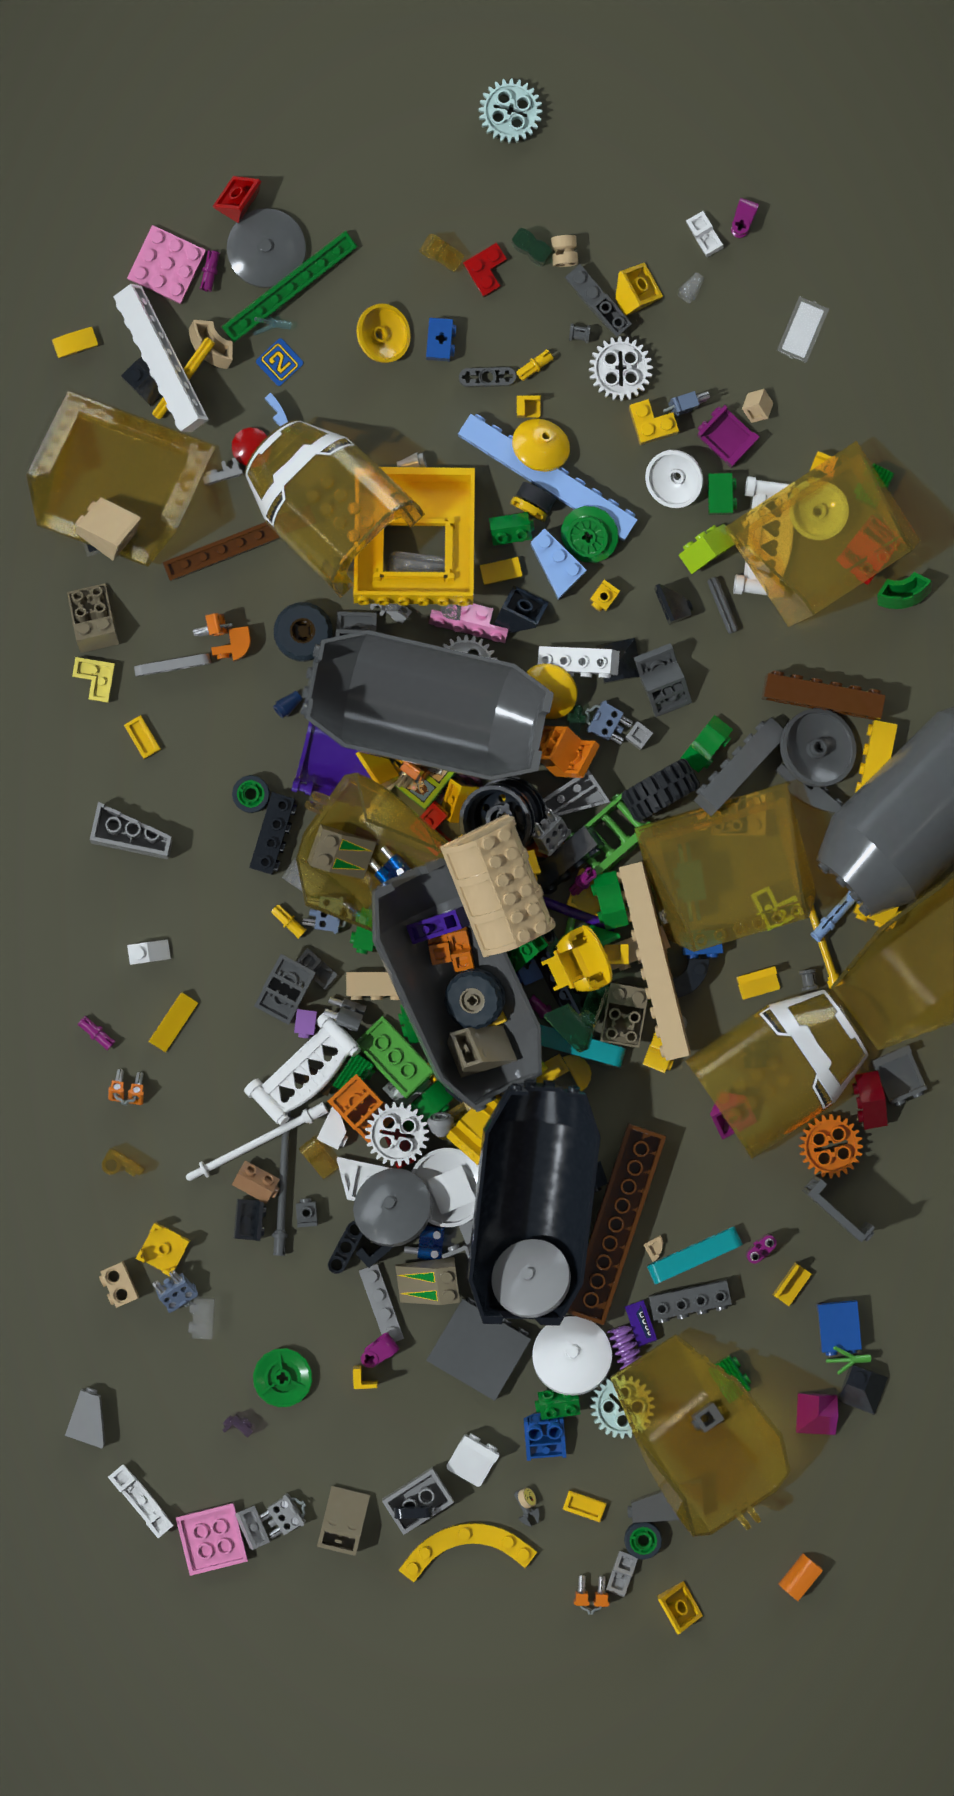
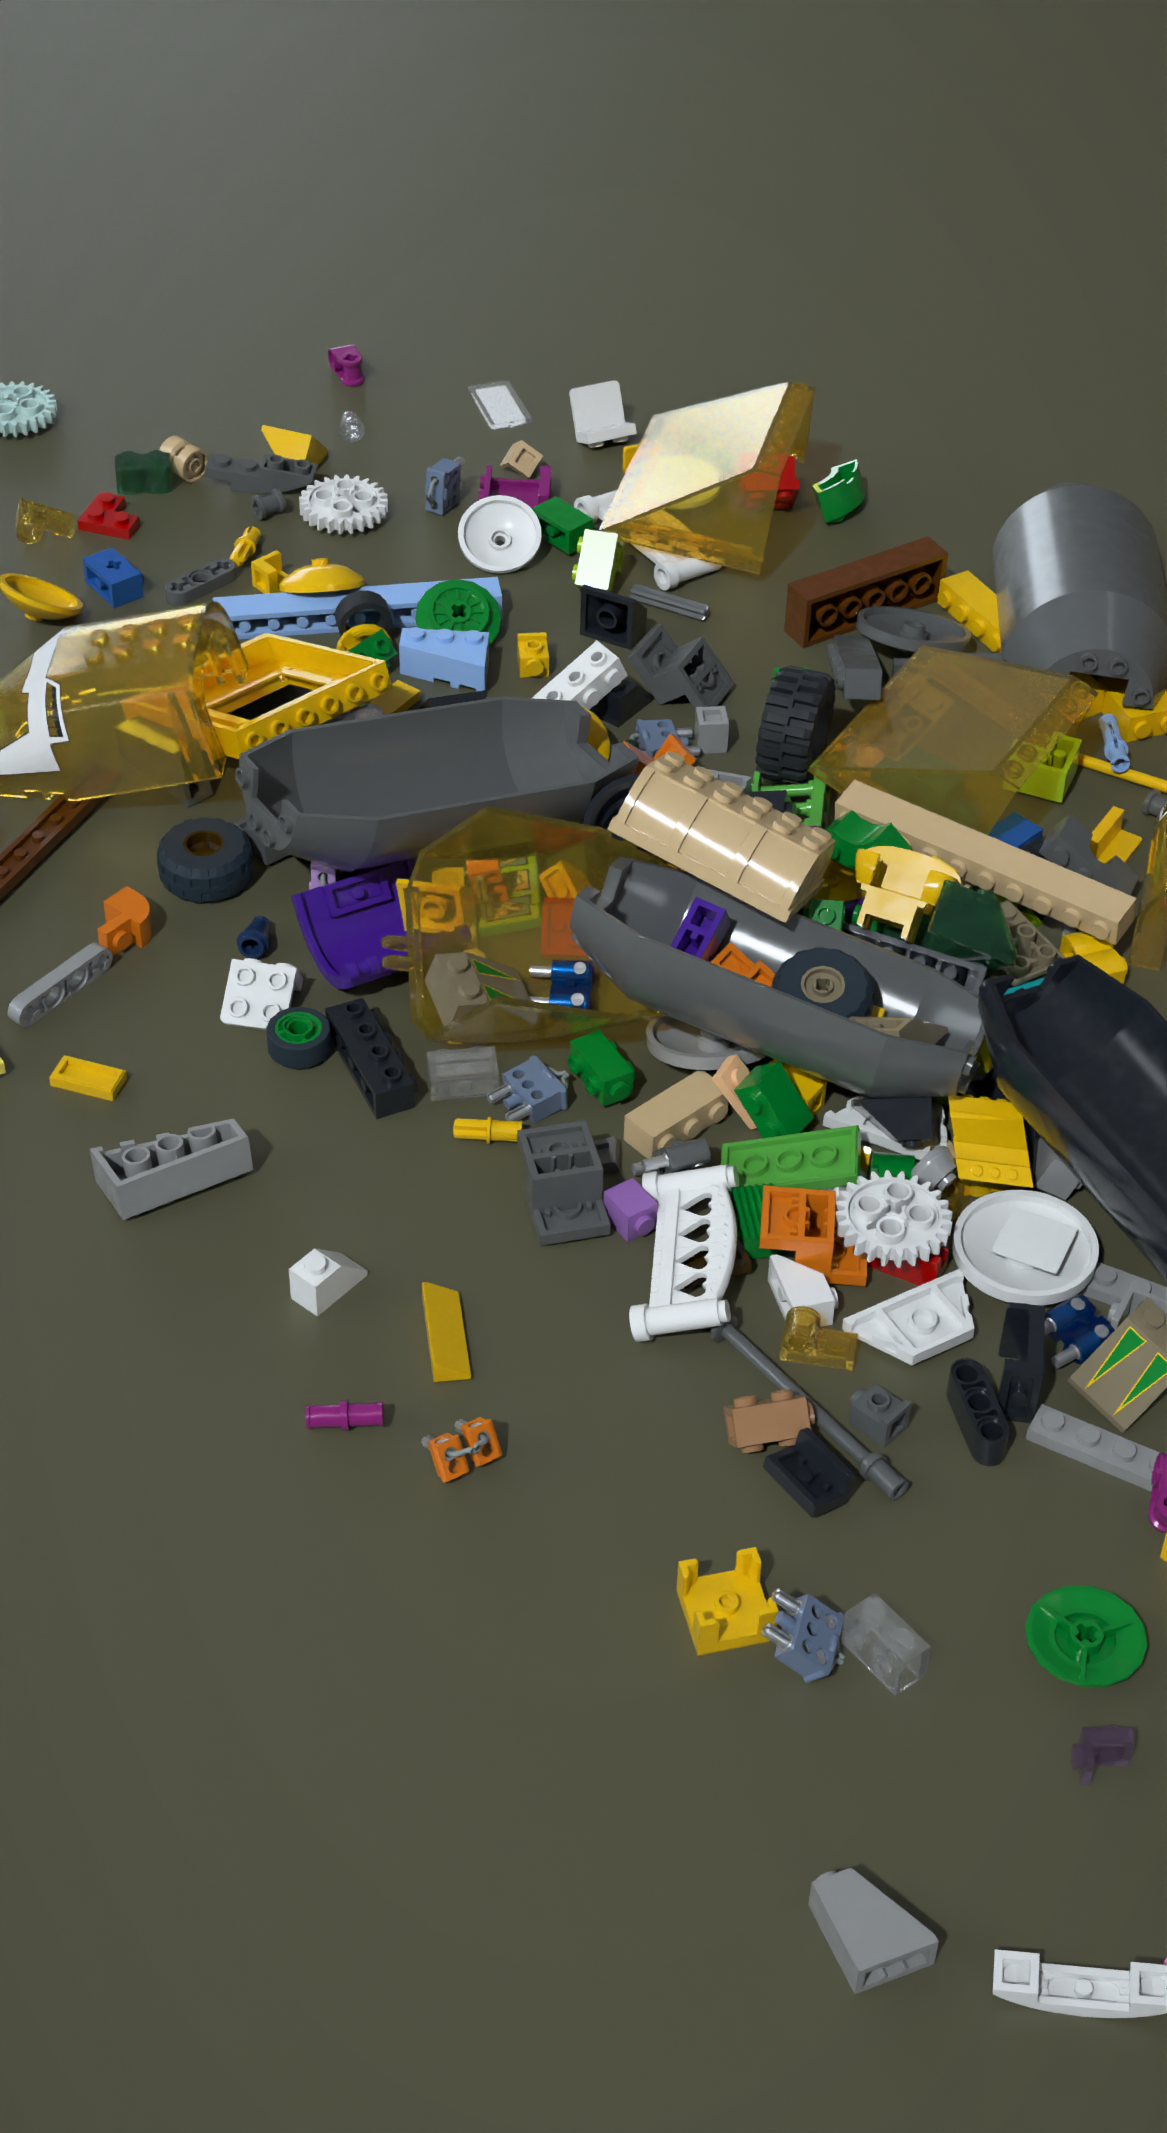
camera: 35 degrees left, 45 degrees down
(121, 1160) = (538, 1538): clear yellow plate -> none
(124, 1282) = (714, 1689): tan brick -> none
(215, 626) = (83, 912): orange piece -> none
(258, 747) = (258, 992): none -> white bracket
(307, 1116) = (751, 1294): white bar -> none
(392, 1207) = (987, 1295): dark grey dish -> none
(650, 428) = (424, 522): yellow brick -> none
(704, 234) = (314, 393): white slope -> none
(708, 985) = (1069, 847): none -> dark grey arch
(835, 408) = (599, 414): none -> white bracket

